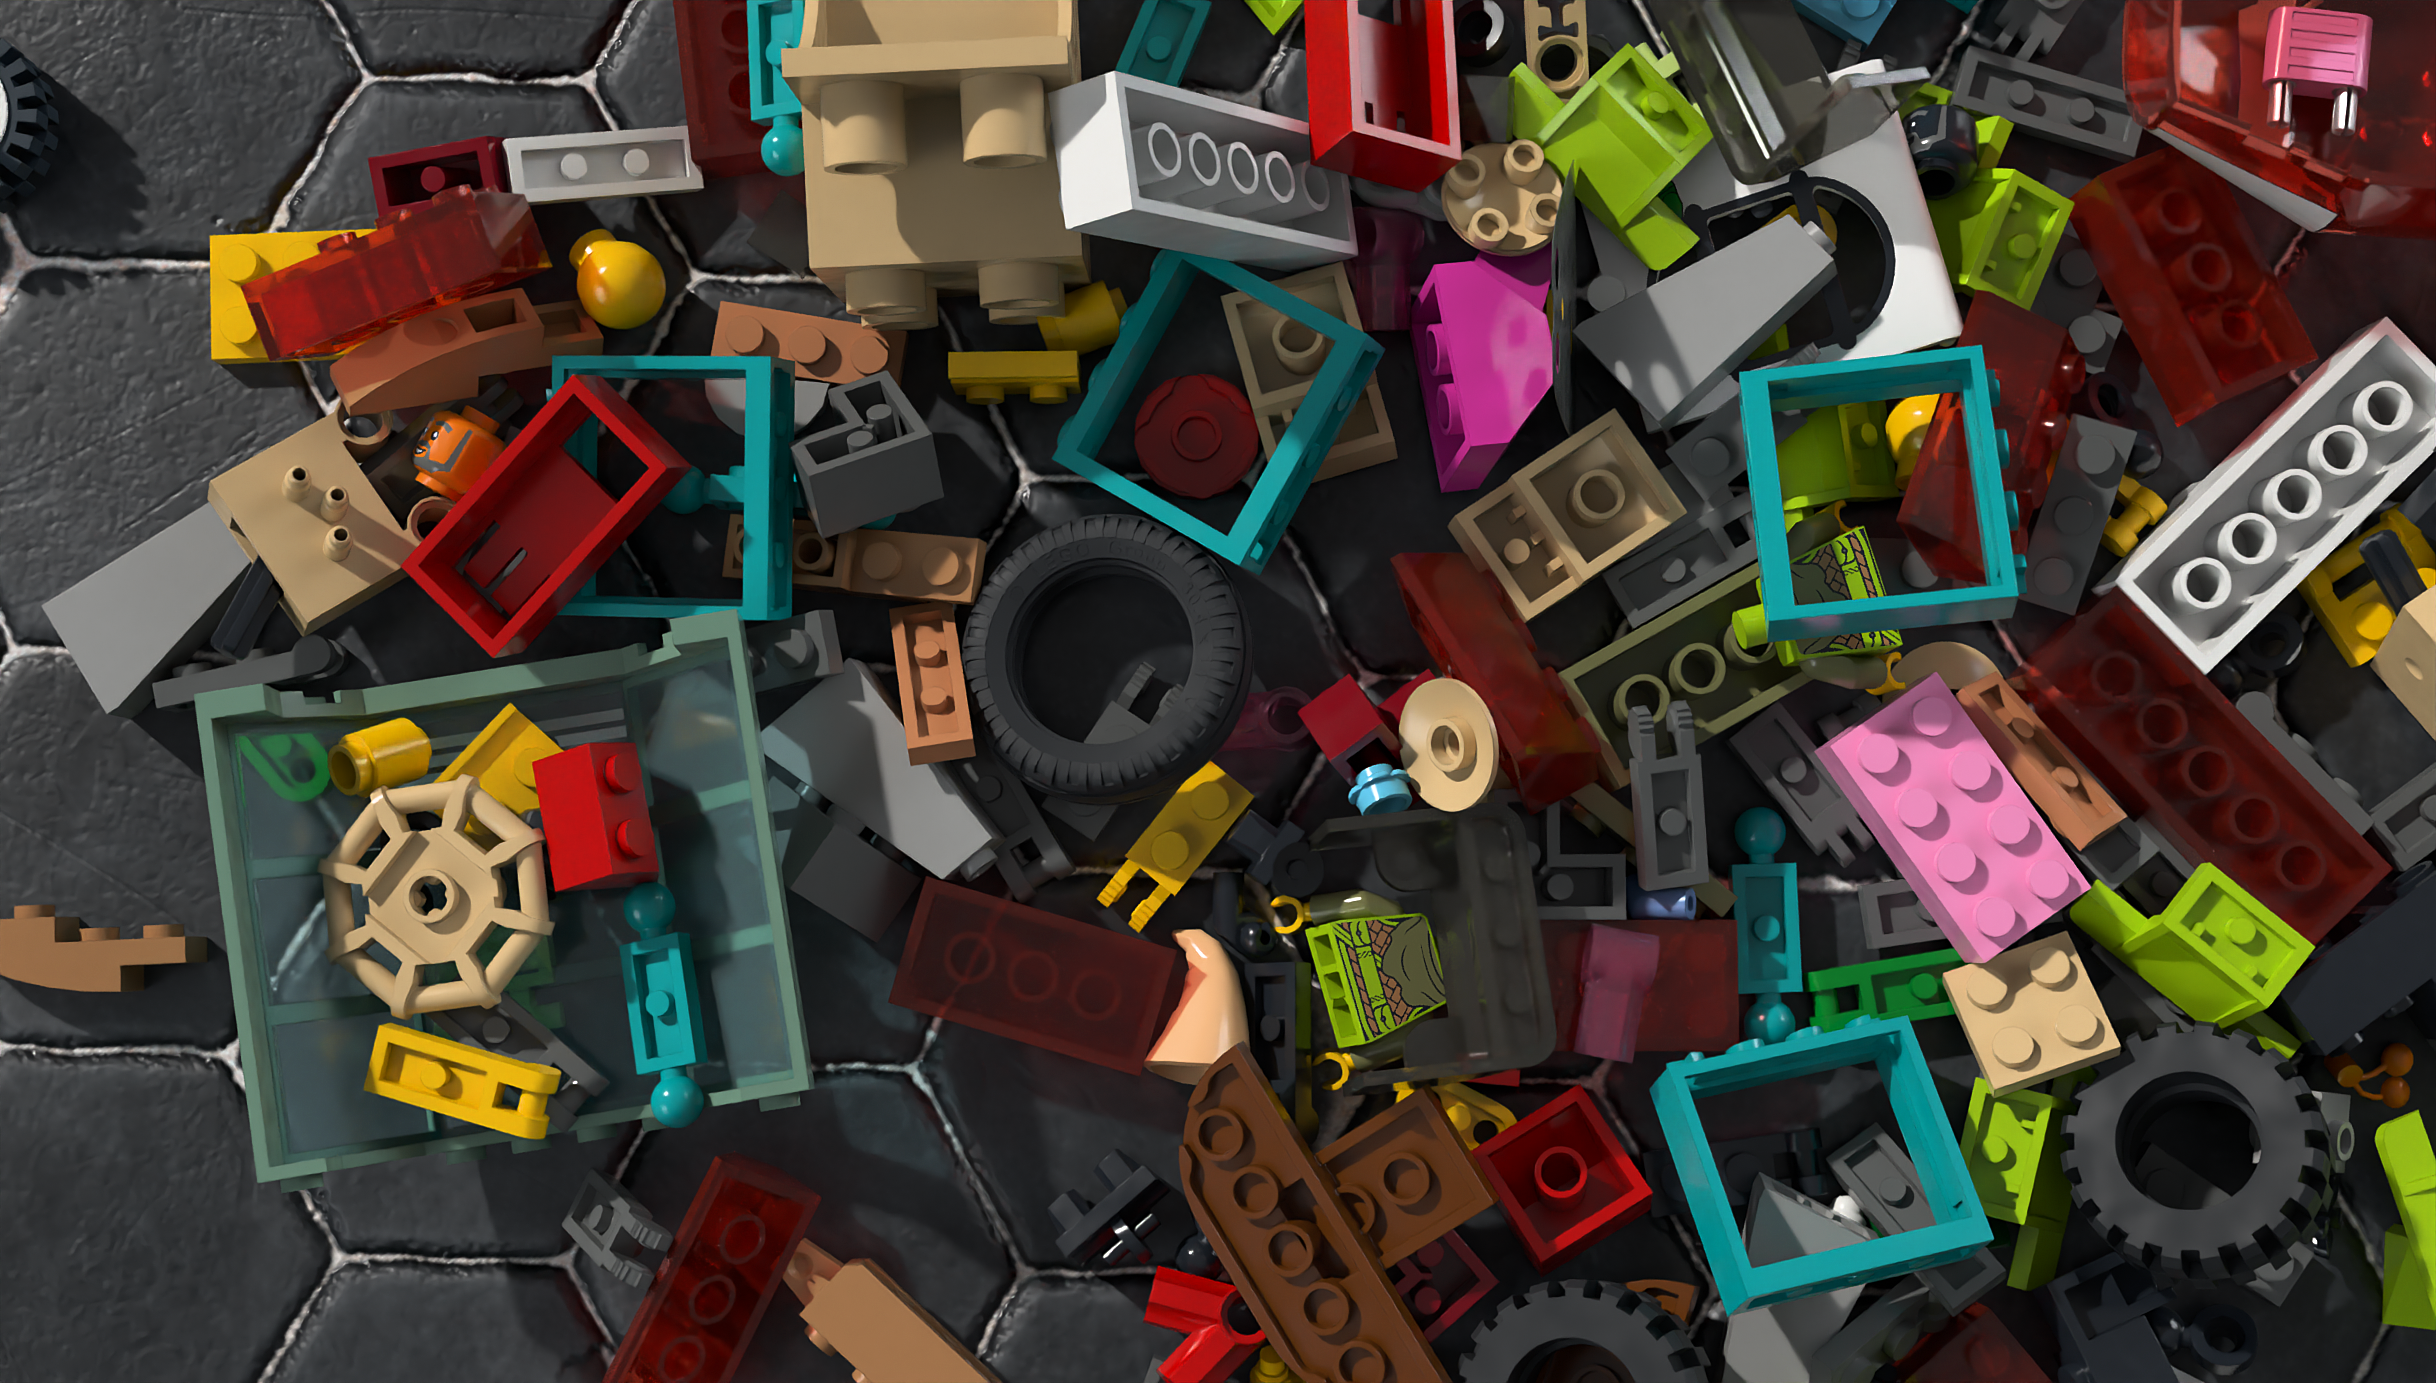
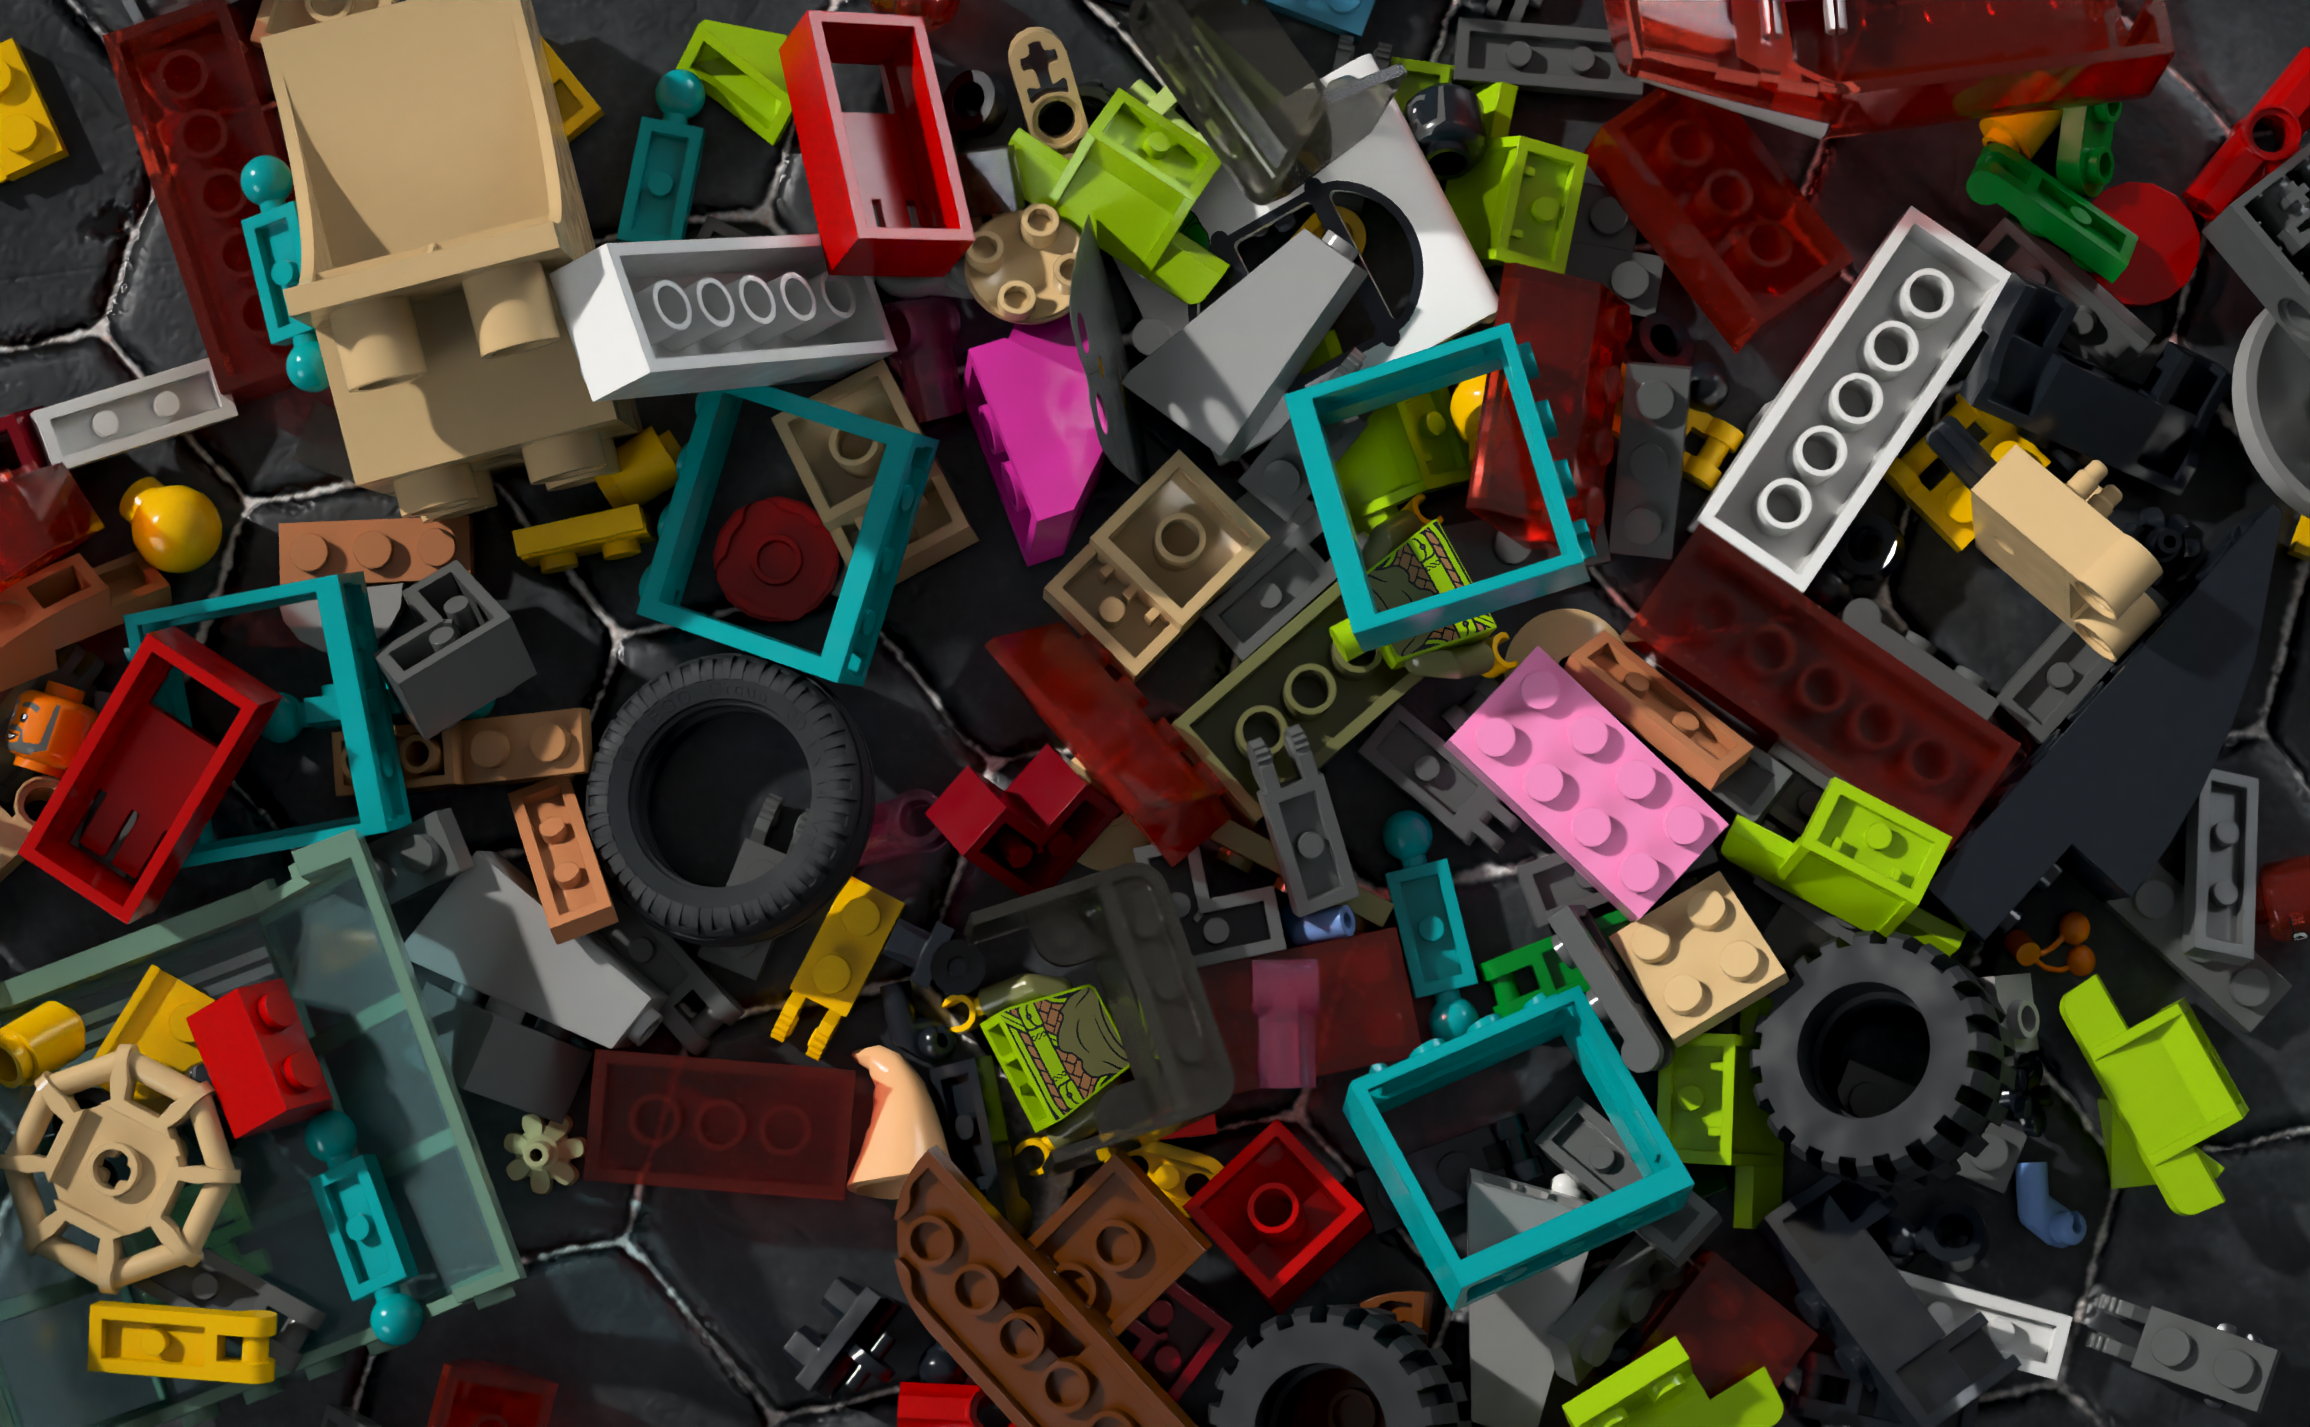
camera: 10 degrees left, 0 degrees up
(865, 963) = (556, 1153): none -> tan plant
(1381, 790) = (1020, 873): medium azure plate -> none
(1448, 744) = (1073, 816): tan dish -> none
(1939, 1028) = (1612, 990): none -> dark grey plate
(2311, 1333) = (2041, 1212): none -> medium blue arm

